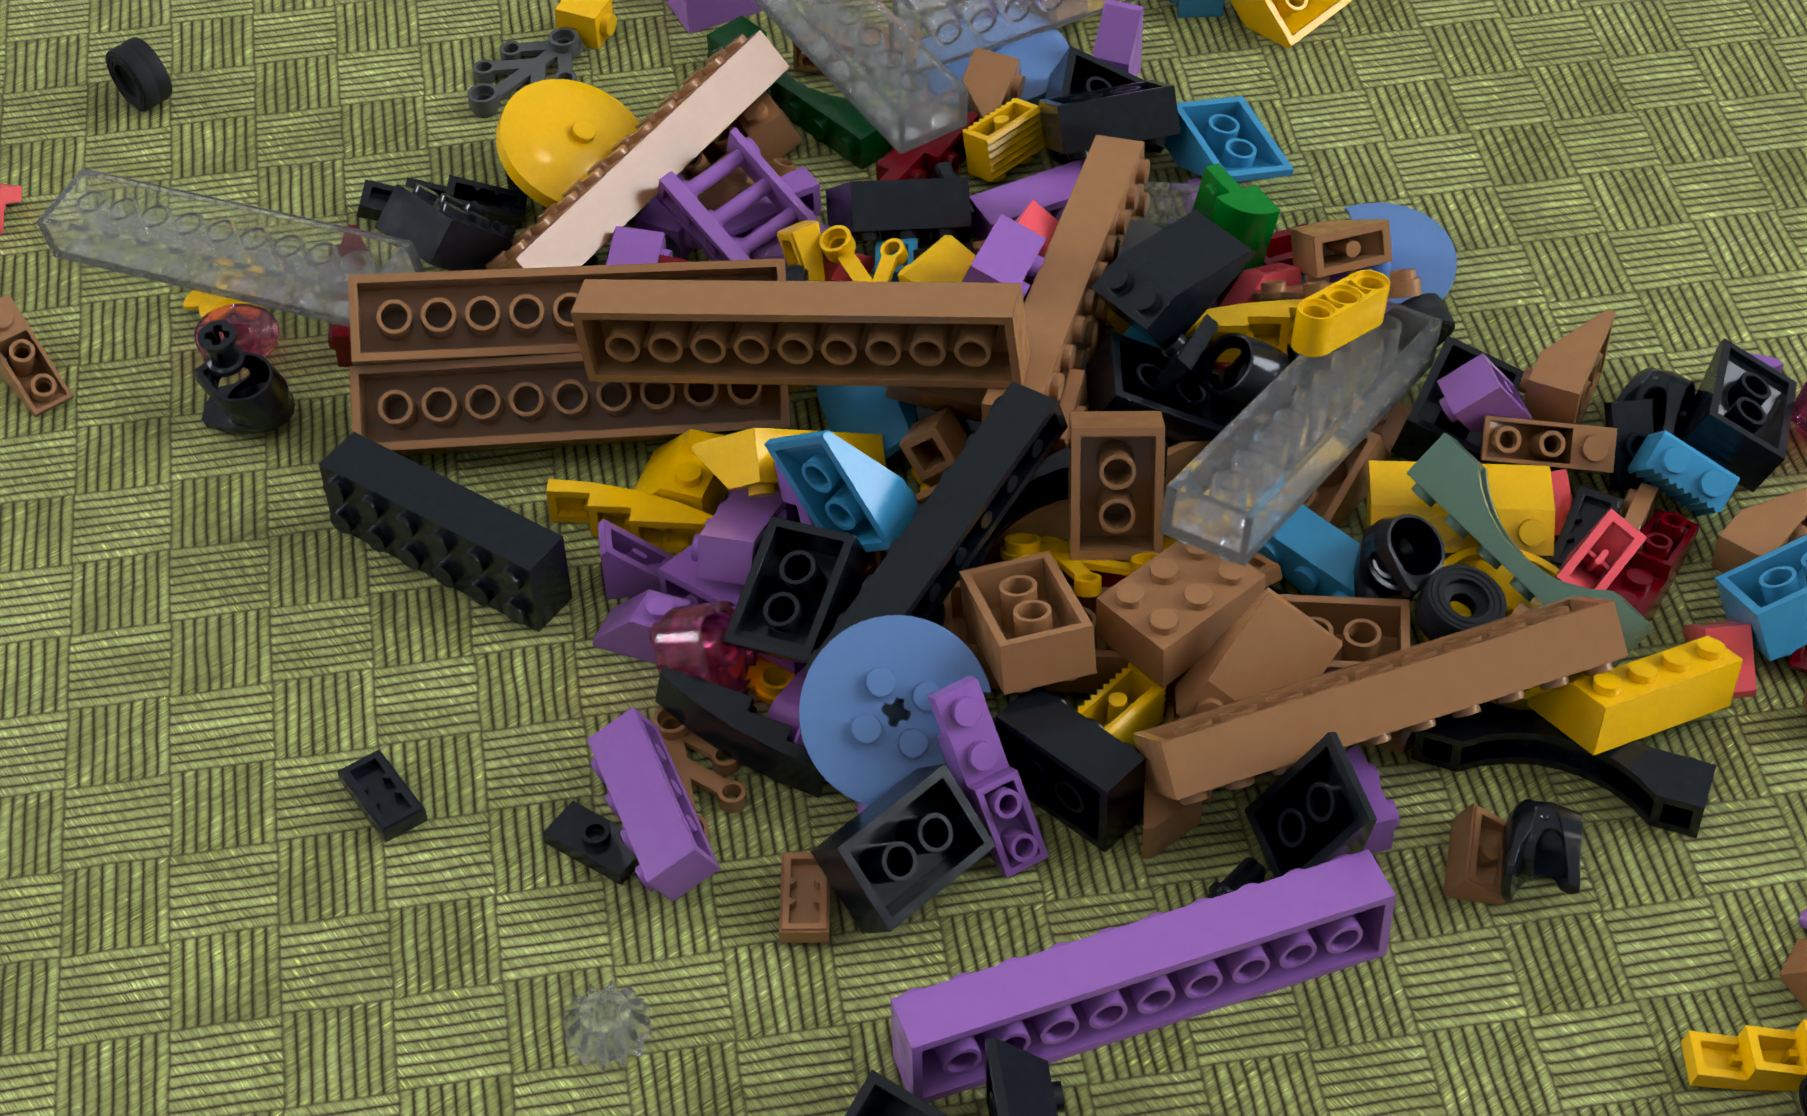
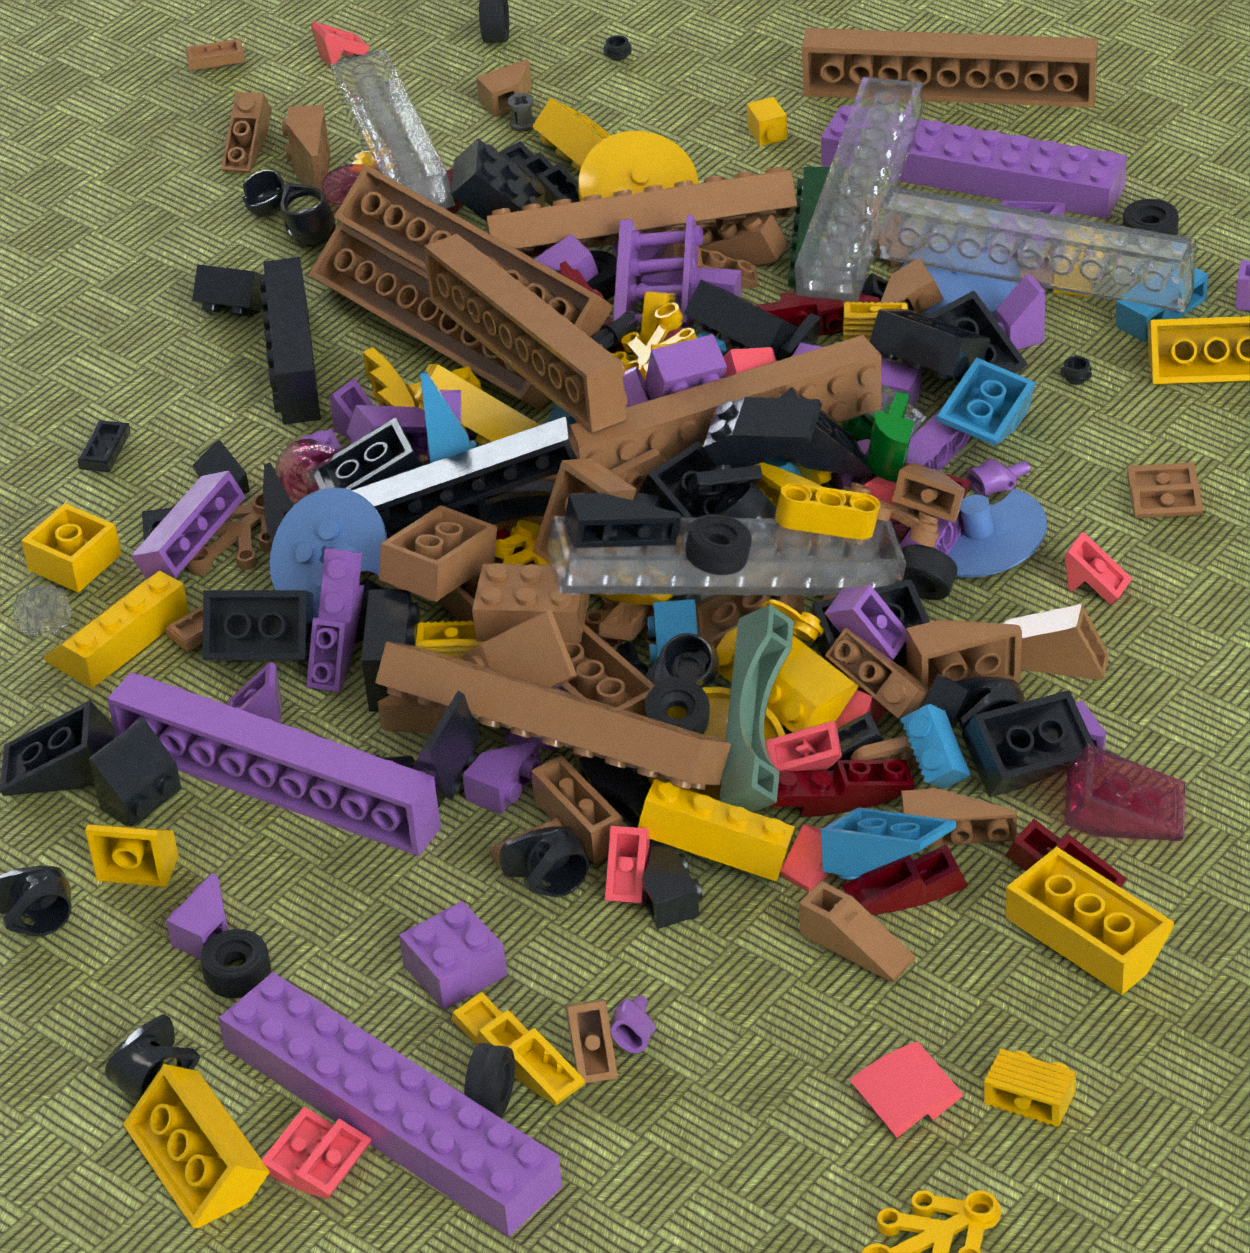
camera: 50 degrees right, 5 degrees down
(142, 323) = (307, 144): none -> medium nougat slope
(148, 402) = (263, 192): none -> black hair
(211, 342) = (302, 181): black bush -> none
(253, 141) = (500, 84): none -> medium nougat slope
(273, 528) = (227, 288): none -> black slope
(309, 35) = (617, 47): none -> black plate
(310, 153) = (521, 111): none -> dark grey bush
(426, 143) = (568, 131): none -> yellow slope
(542, 929) = (71, 547): none -> yellow brick
(559, 724) = (218, 460): none -> black slope
(562, 45) = (728, 132): dark grey plant -> none
(717, 977) = (121, 630): none -> yellow slope
(1002, 925) = (261, 695): none -> medium lavender slope
(1219, 72) = (1076, 370): none -> black plate
(1238, 447) = (612, 521): none -> black slope
(1304, 206) = (995, 477): none -> medium lavender piece
(1334, 406) = (718, 544): none -> black tyre
(1406, 446) = (805, 624): none -> yellow plate
(1452, 129) = (1164, 490): none -> medium nougat slope
(1497, 776) = (567, 795): none -> medium nougat brick
(1523, 229) = (1091, 564): none -> coral slope
(1605, 1019) = (453, 955): none -> medium lavender brick
(1610, 788) = (627, 864): none -> coral slope
(1614, 288) = (1062, 643): none -> medium nougat slope

